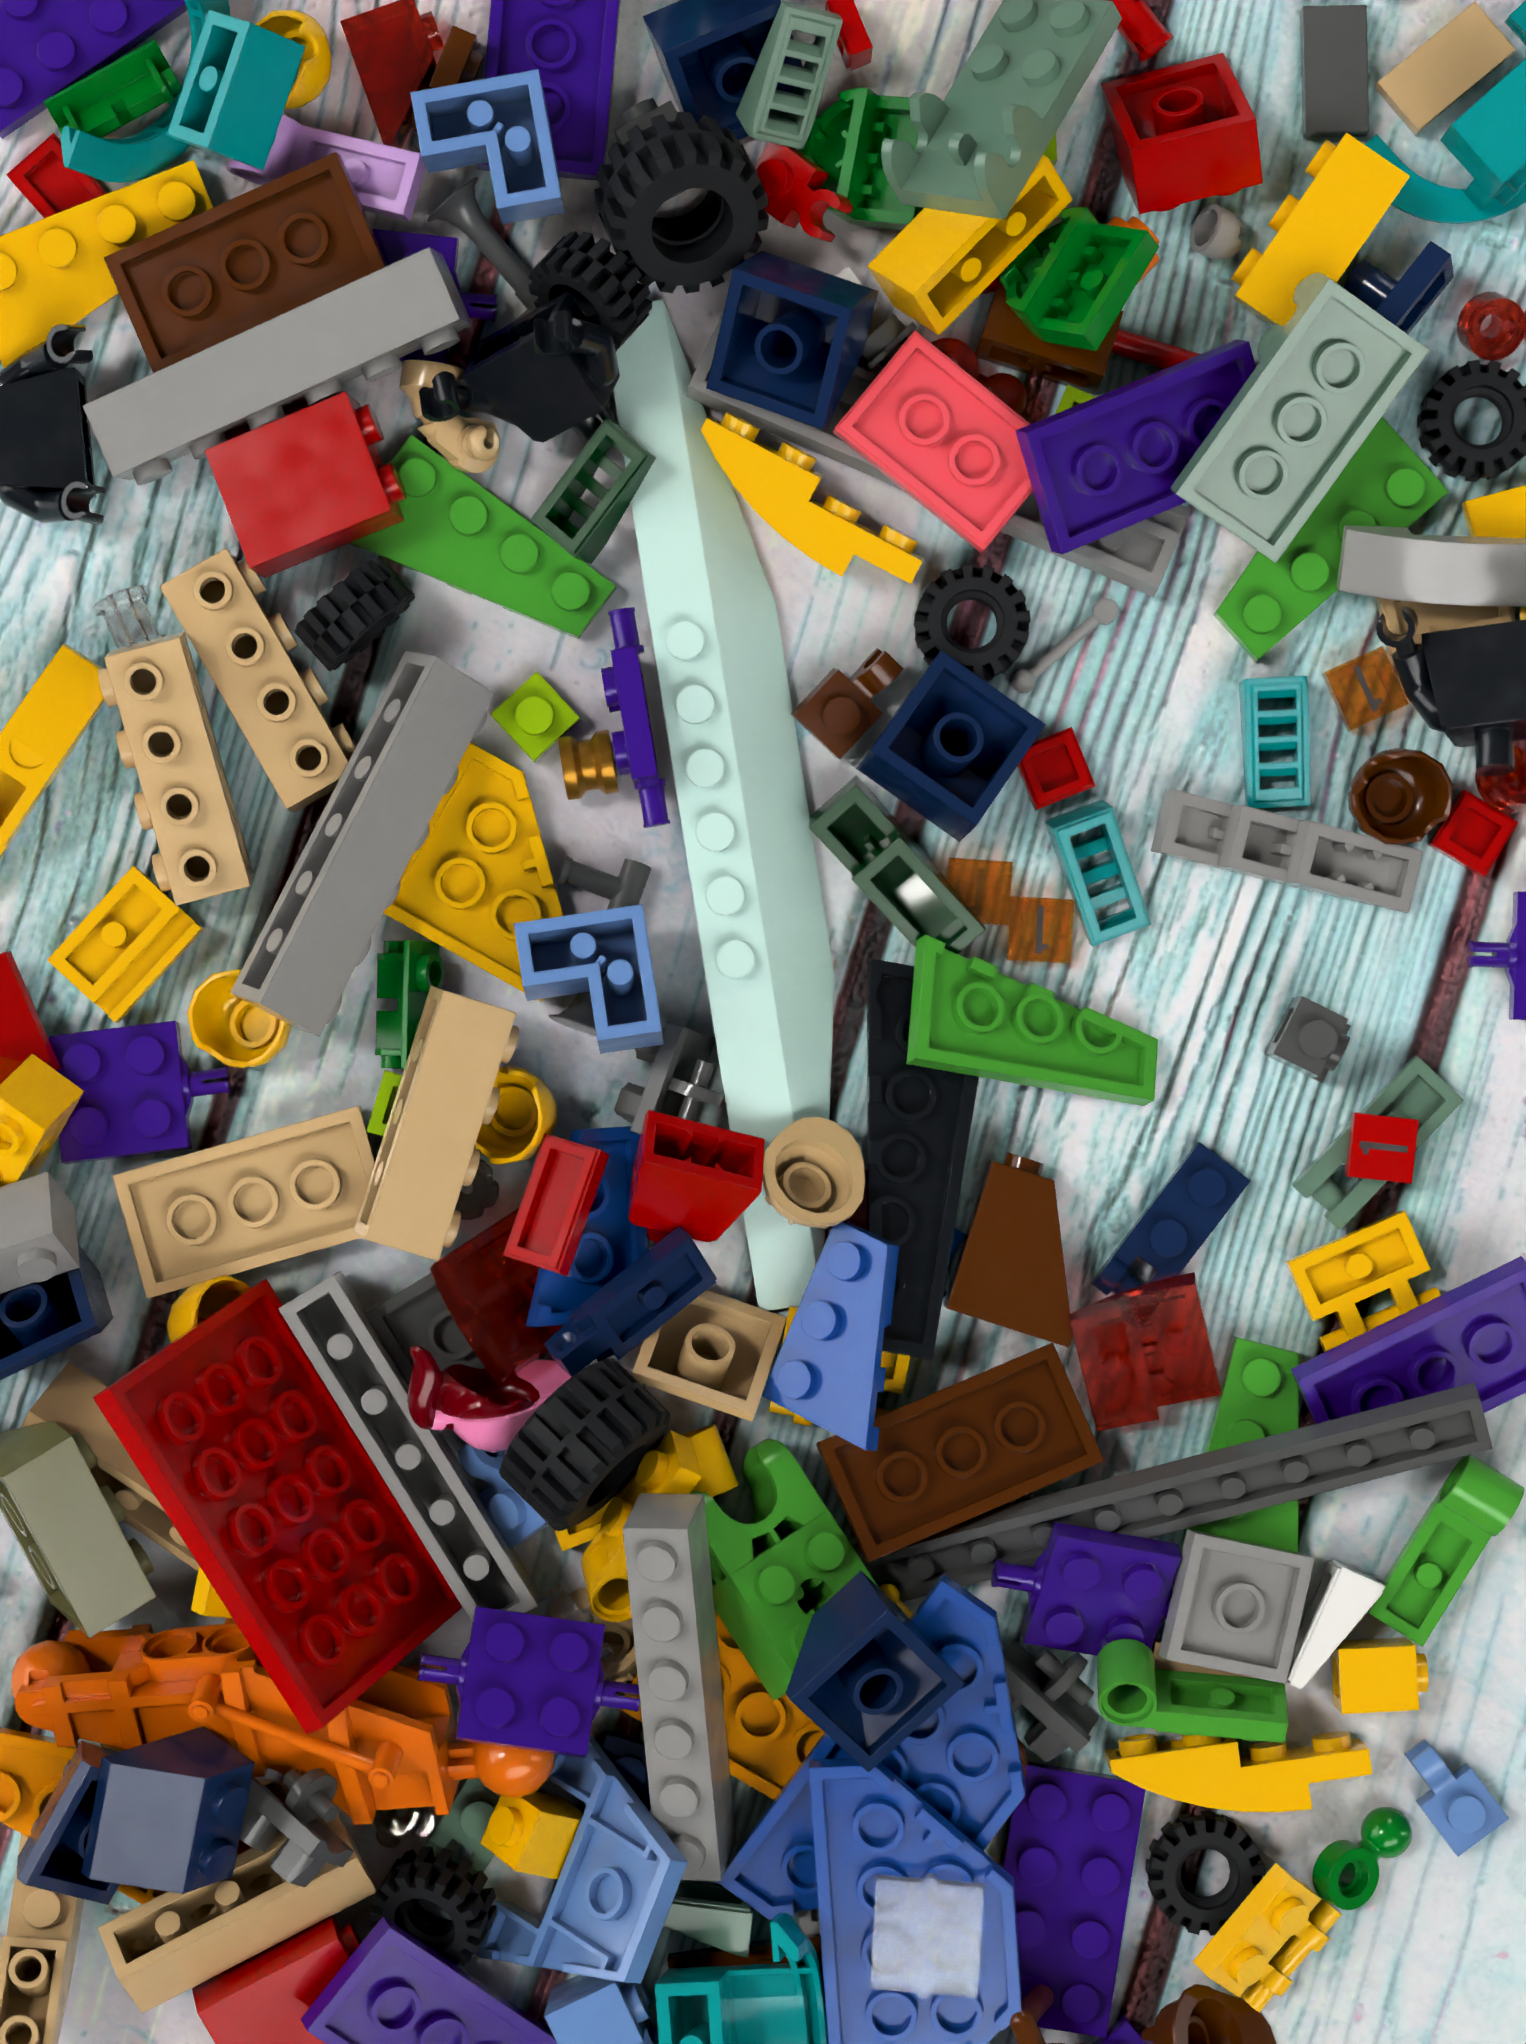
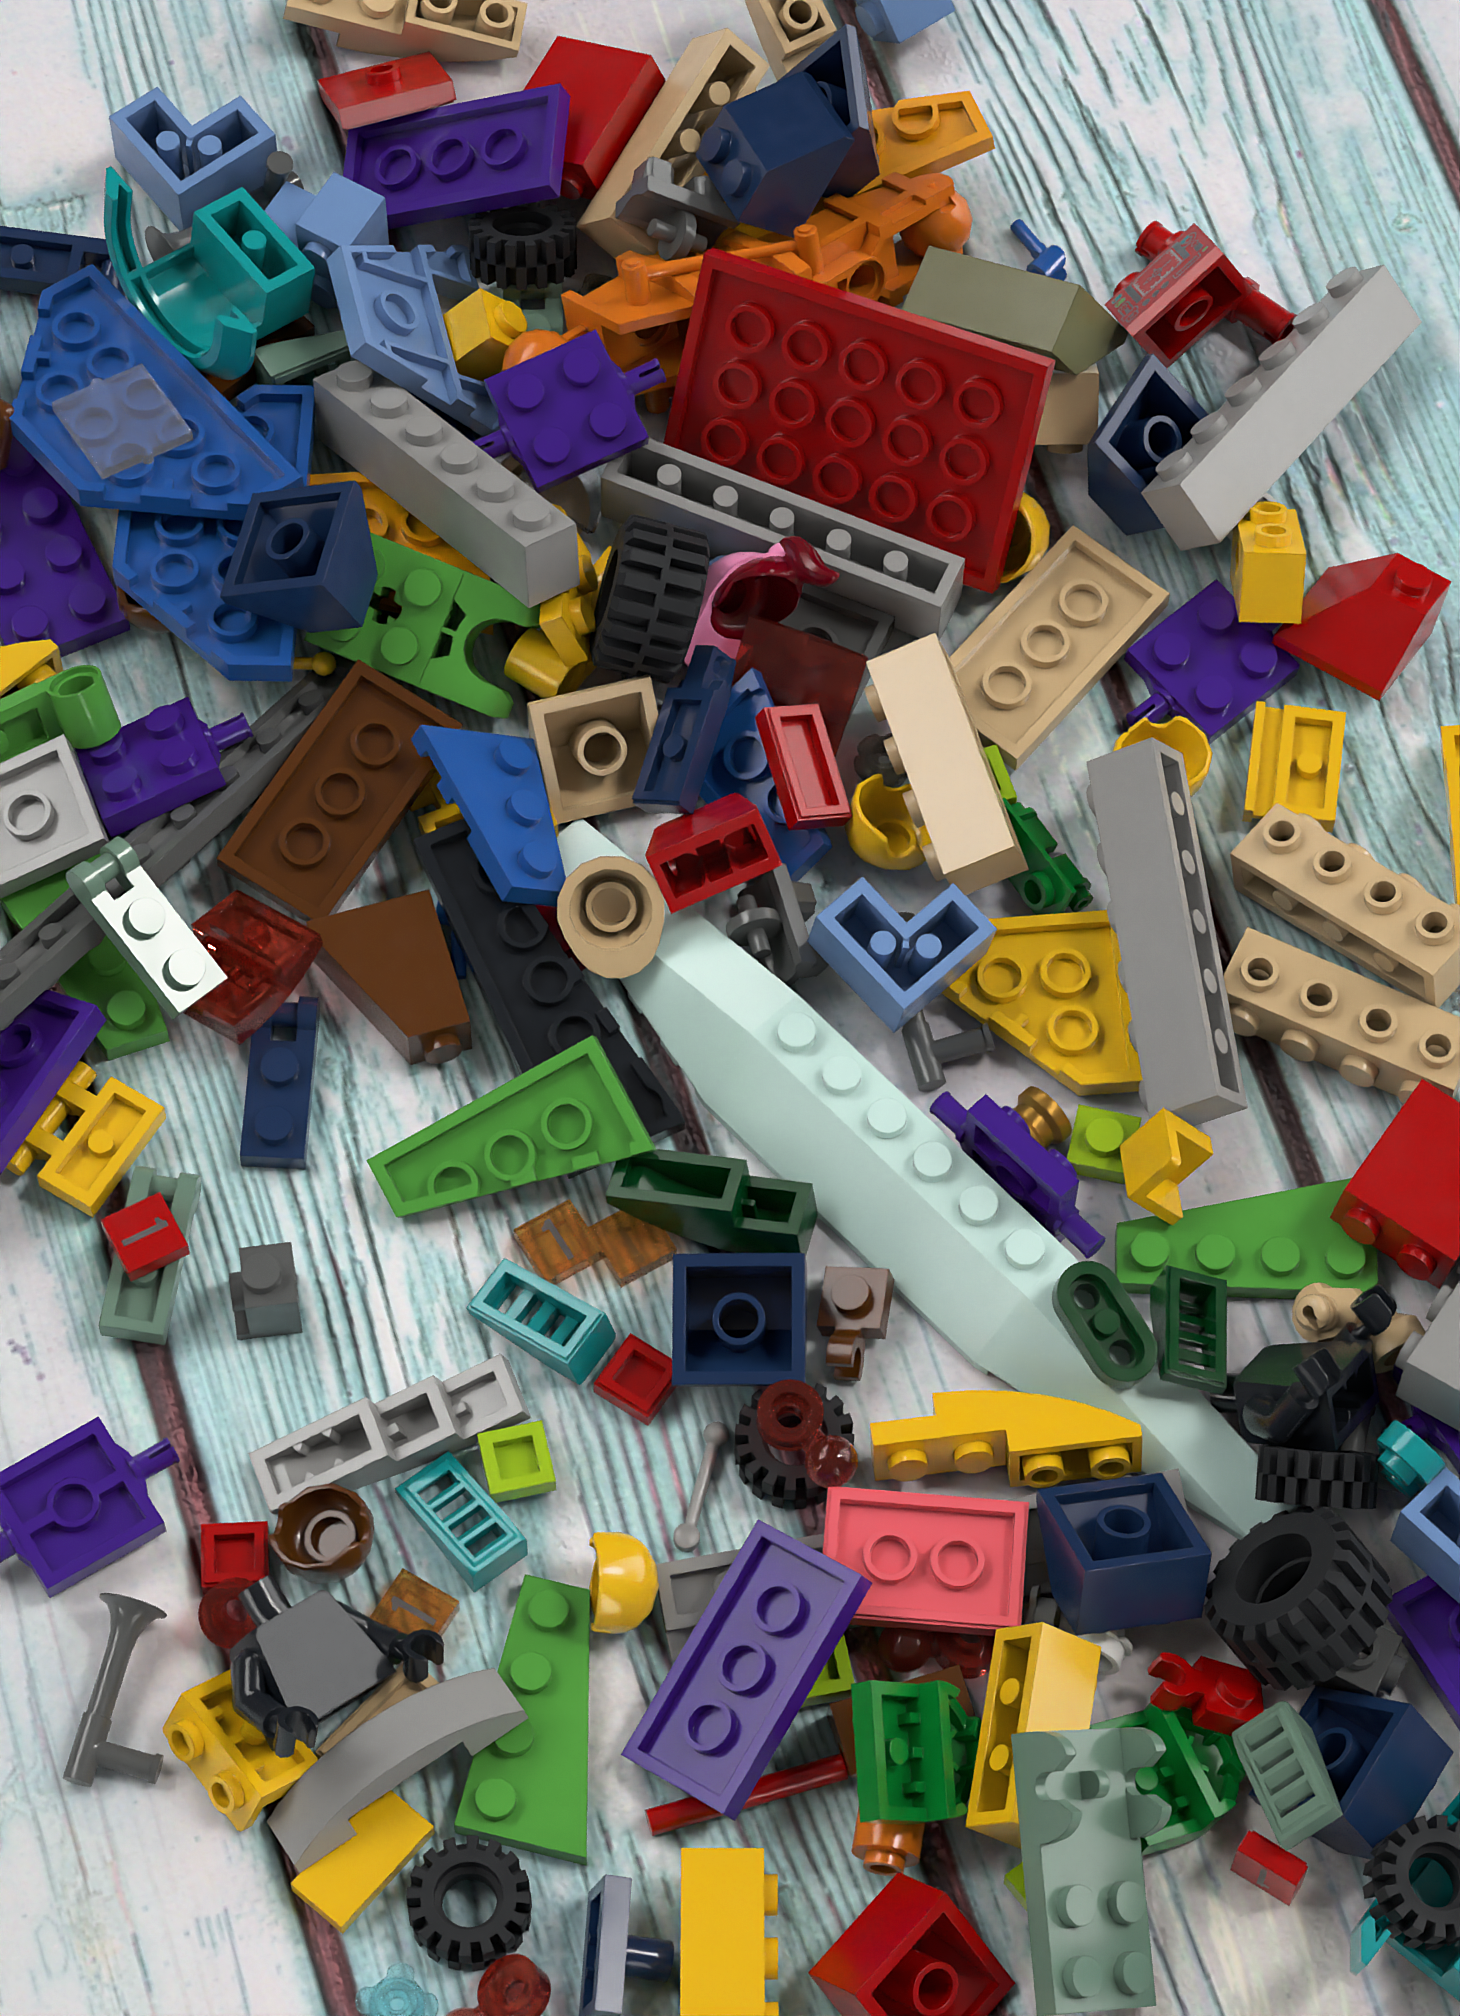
camera: 145 degrees right, 25 degrees down
(354, 613) = (1311, 1110): black tyre -> none
(513, 244) = (1407, 1459): none -> teal plate
(517, 656) = (1159, 1160): none -> yellow panel
(668, 533) = (1108, 1324): none -> dark green plate
(967, 571) = (828, 1458): none -> clear red plate
(1053, 1696) = (145, 672): dark grey hips -> none
(1194, 591) = (621, 1582): none -> yellow hair
(1202, 758) = (516, 1461): none -> lime plate
(1216, 1415) = (145, 928): none -> plate
(1217, 232) = (818, 1914): light grey hinge -> none
(1299, 416) = (633, 1771): hinge -> none

